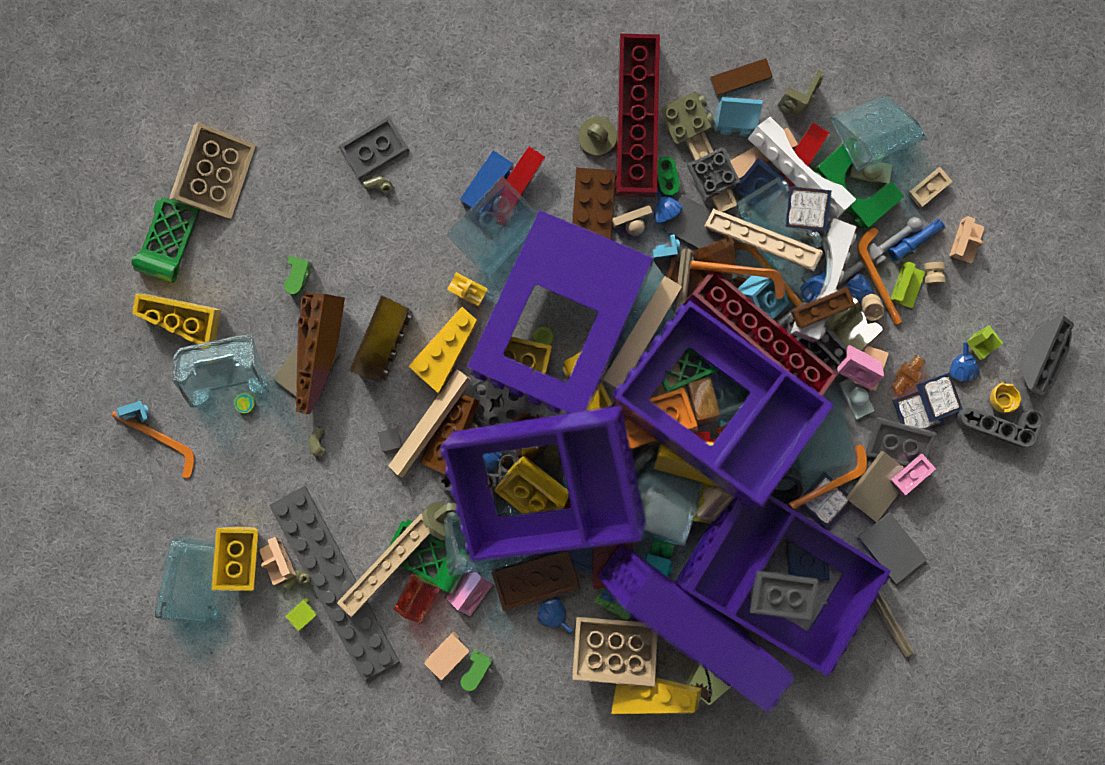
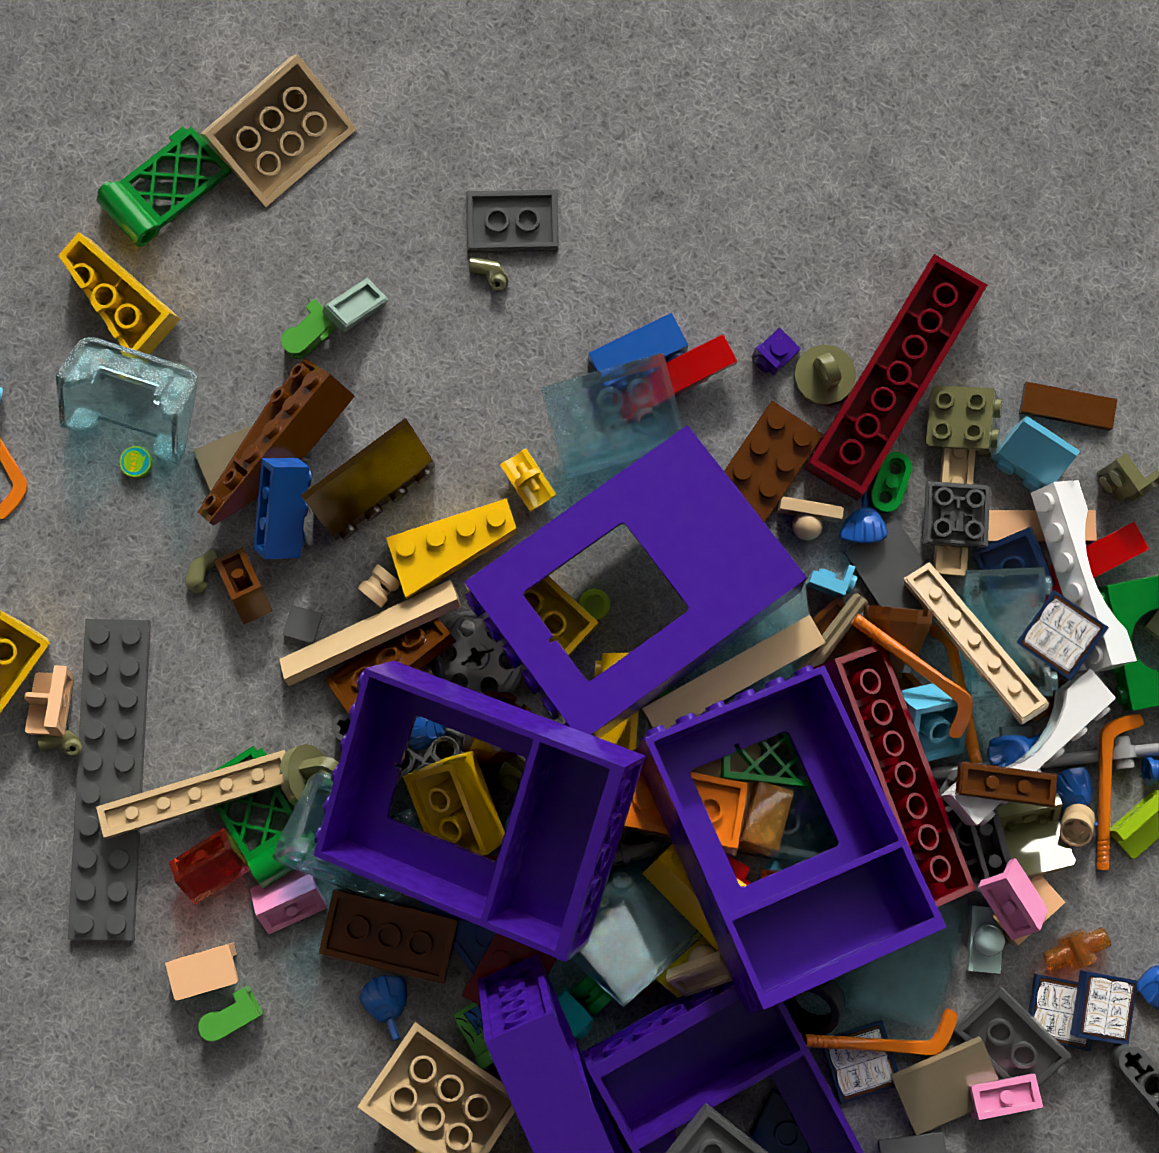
camera: 25 degrees right, 5 degrees down
(301, 615) = (37, 795): lime panel -> none
(314, 246) = (355, 305): none -> tile
(341, 383) = (281, 508): none -> blue brick
(344, 437) = (243, 585): none -> reddish brown slope
(419, 394) = (379, 585): none -> tan wheel
(563, 139) = (775, 352): none -> dark purple bracket

